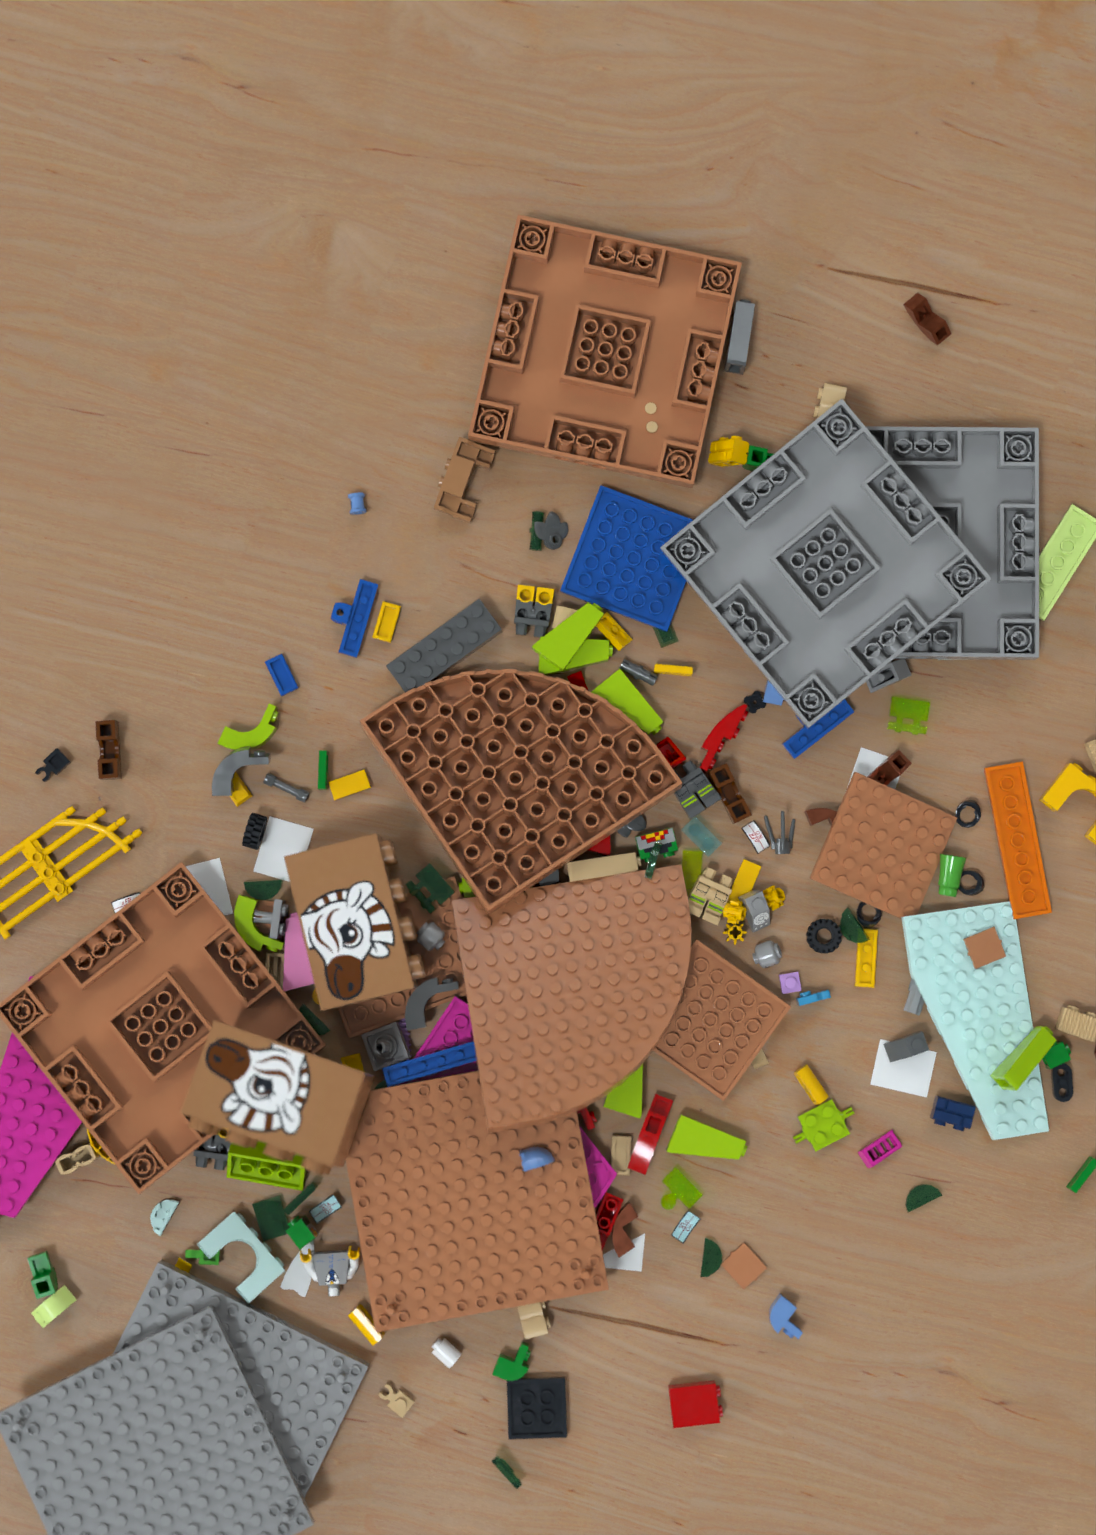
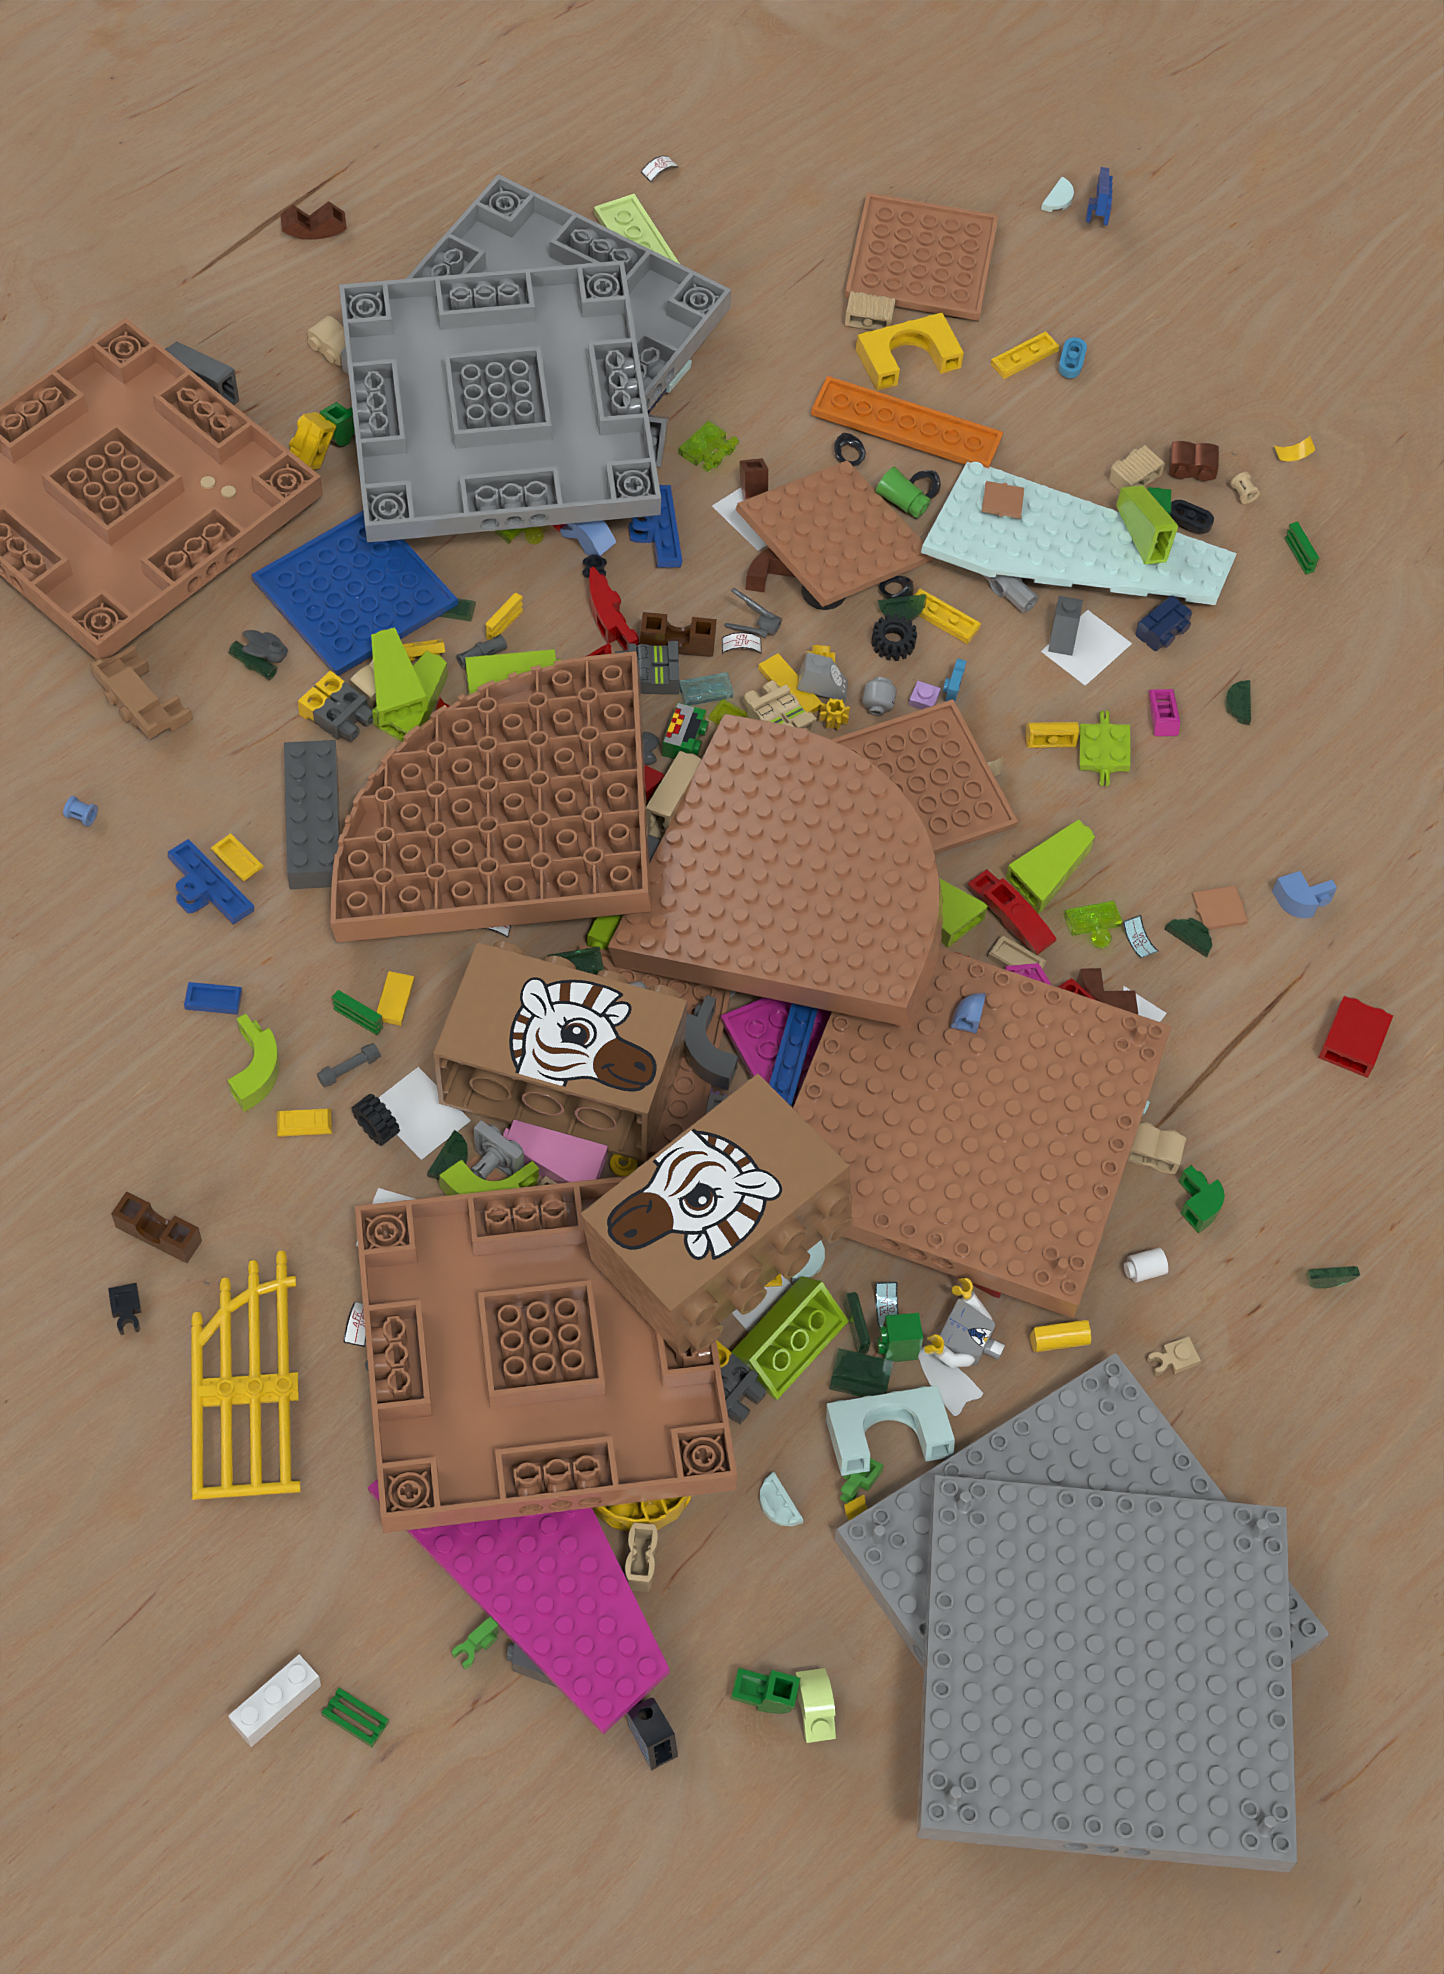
camera: 65 degrees left, 25 degrees down
(223, 777) = (280, 1105): dark grey arch -> none
(537, 1408) = (1270, 1204): black plate -> none
(653, 860) = (701, 728): clear green tile -> none
(734, 912) = (812, 693): yellow gear -> none

